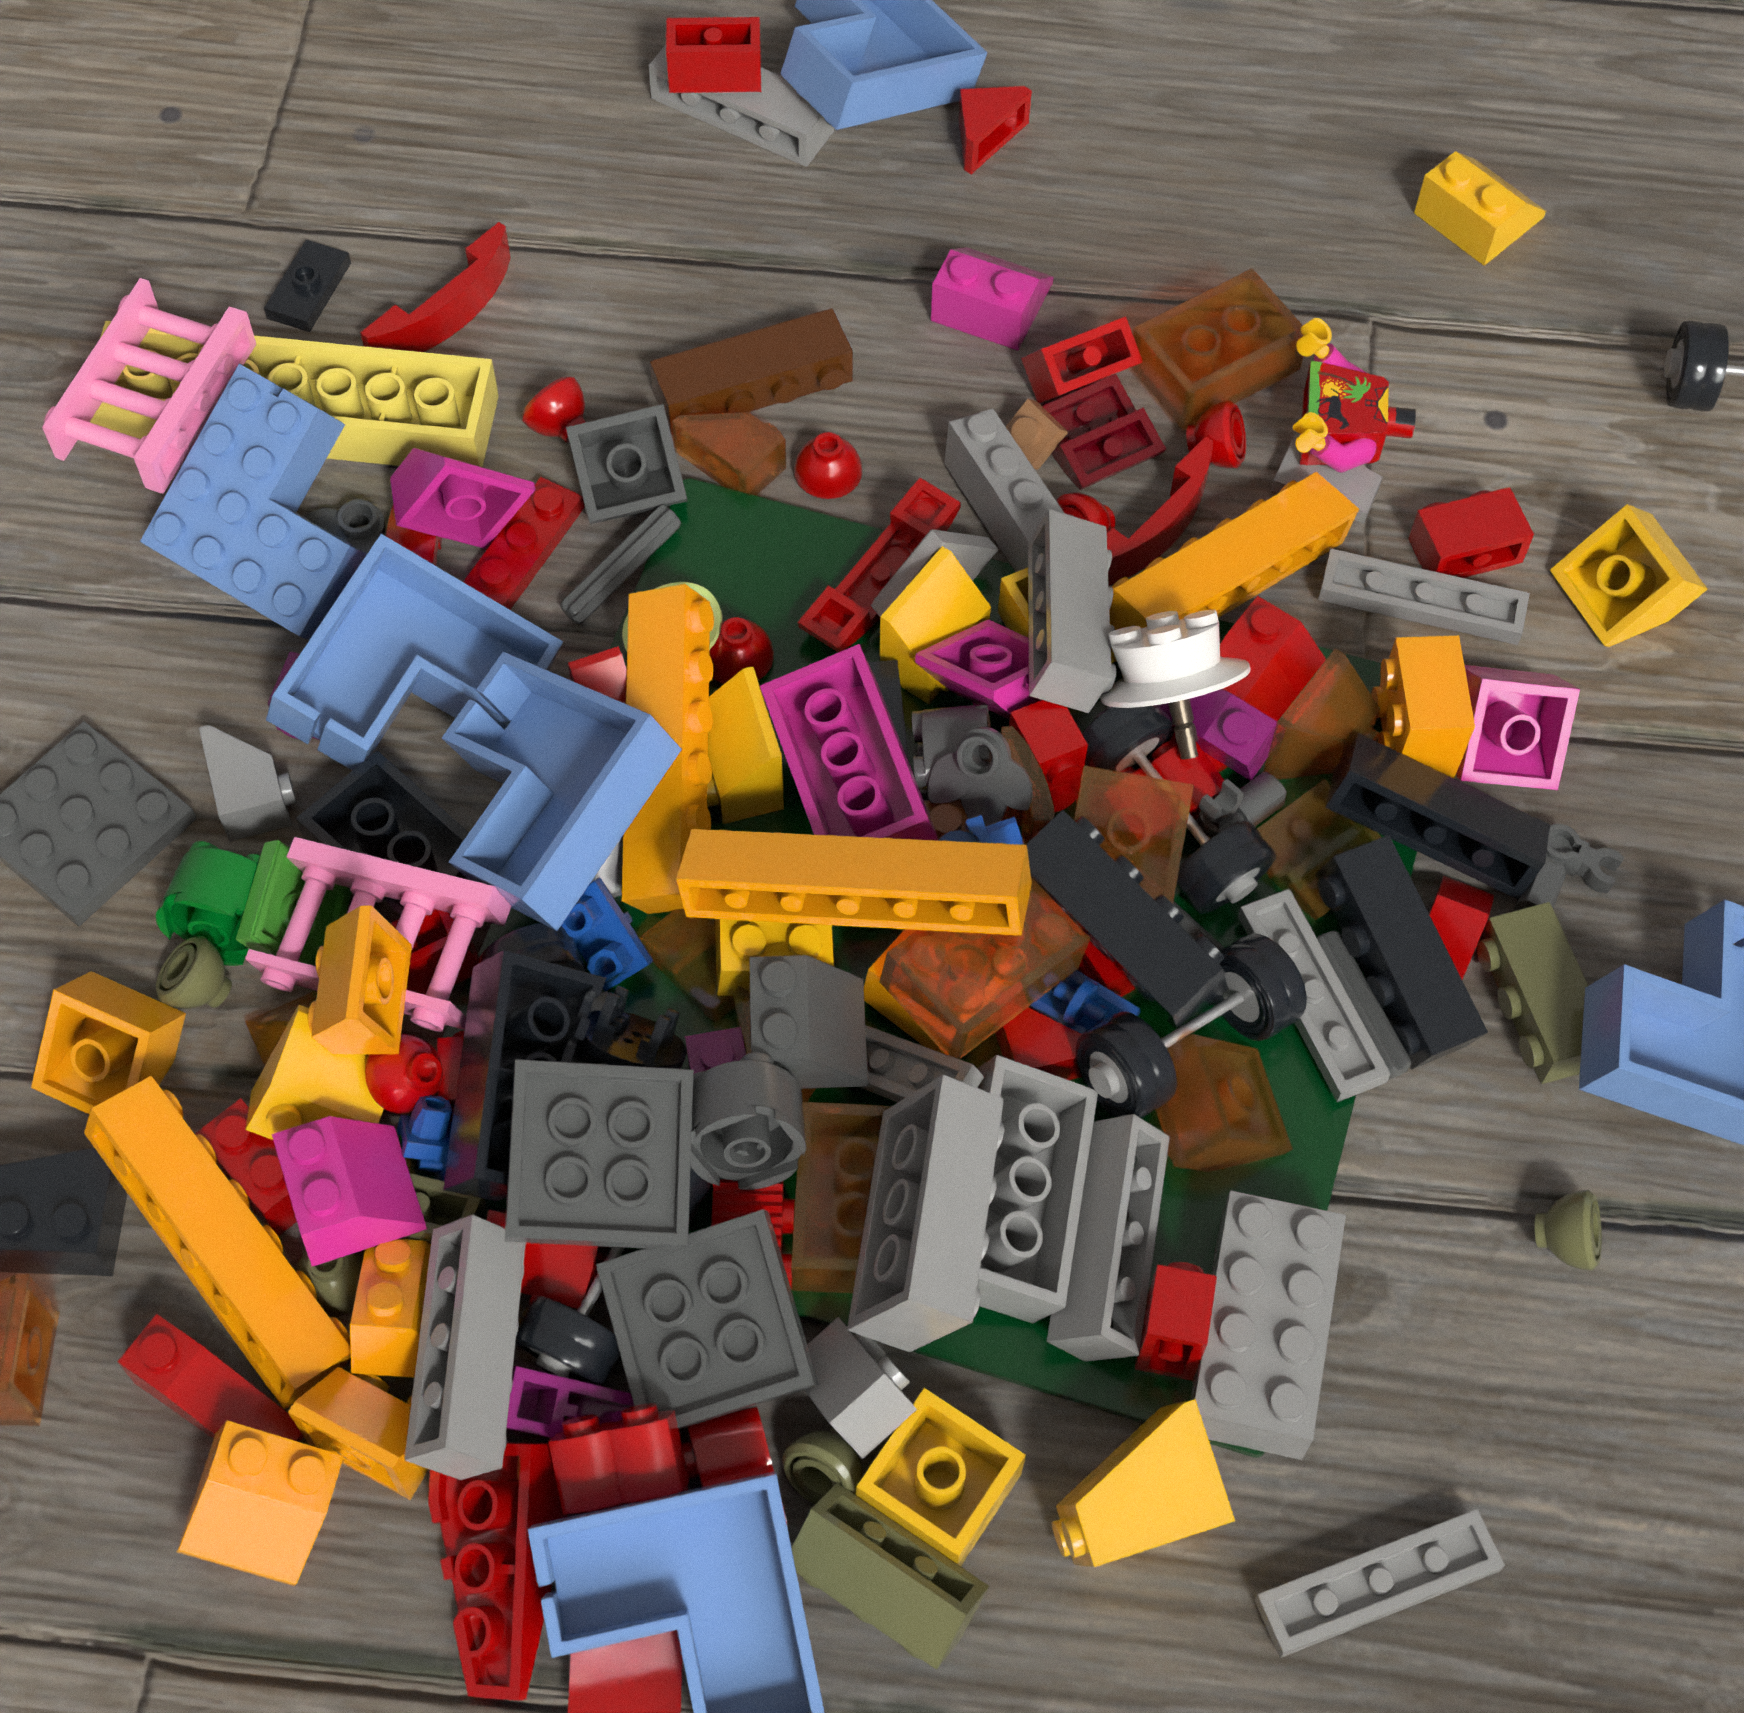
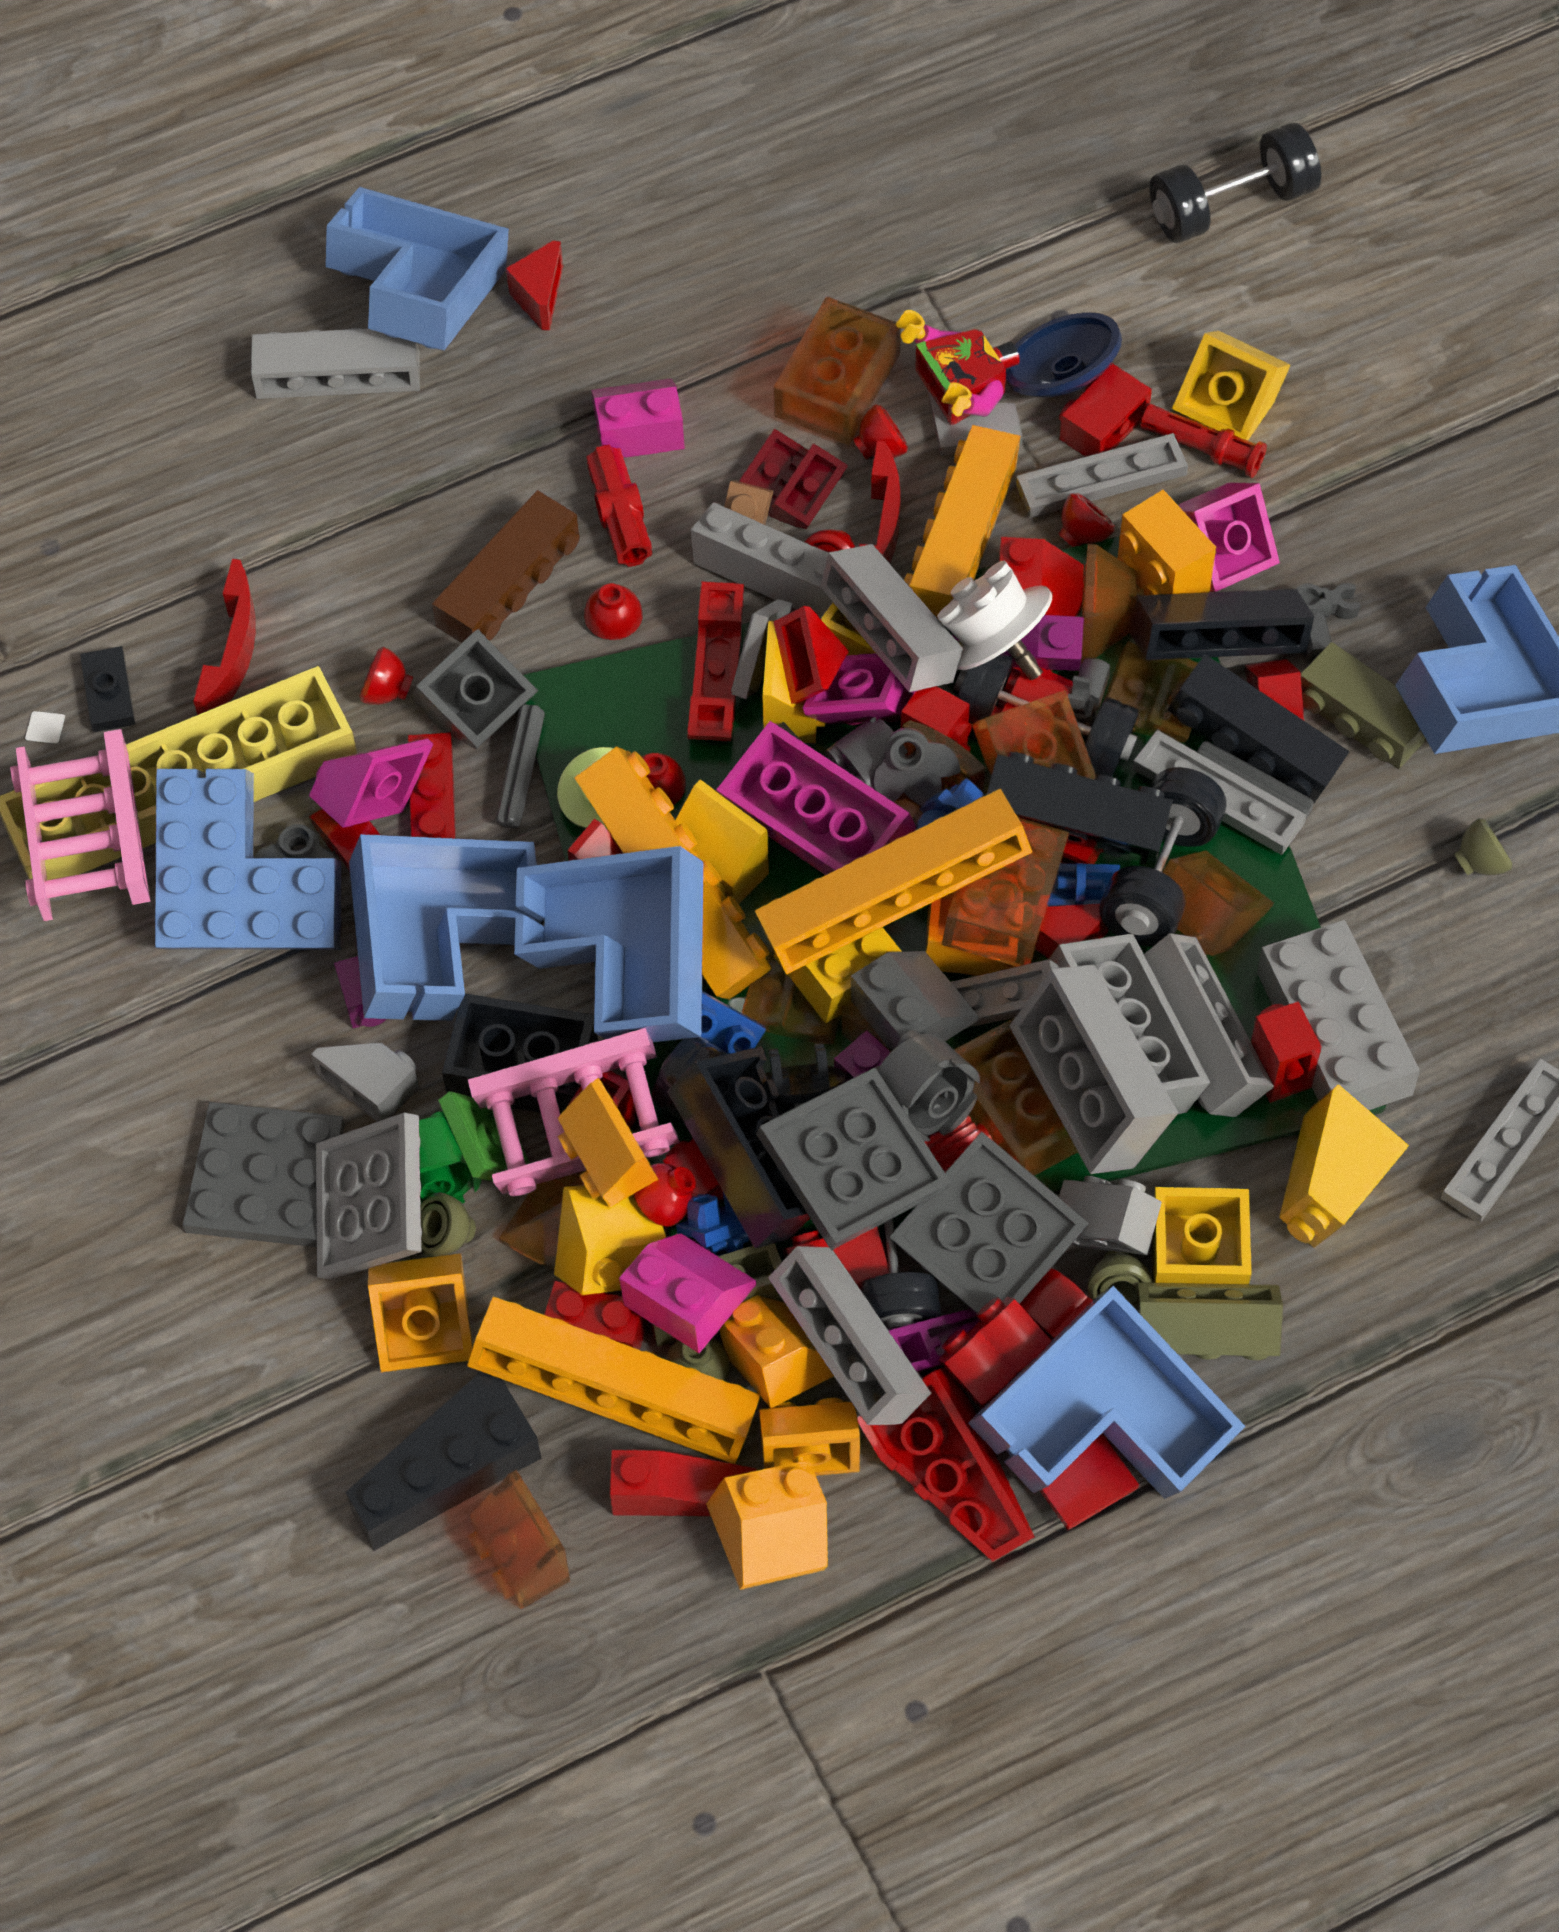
camera: 30 degrees left, 0 degrees up
(129, 900) = (368, 1196): none -> light grey plate
(229, 290) = (45, 727): none -> white sticker
(713, 54) = (310, 339): red brick -> none
(732, 449) = (538, 636): clear orange slope -> none
(907, 368) = (619, 505): none -> red piece
(959, 601) = (808, 653): none -> red slope
(1081, 359) = (746, 431): red brick -> none
(1368, 630) = (1084, 521): none -> red brick
(1464, 454) = (1064, 355): none -> dark blue dish
(1475, 207) = (942, 163): yellow slope -> none
(1574, 633) = (1220, 445): none -> red pin

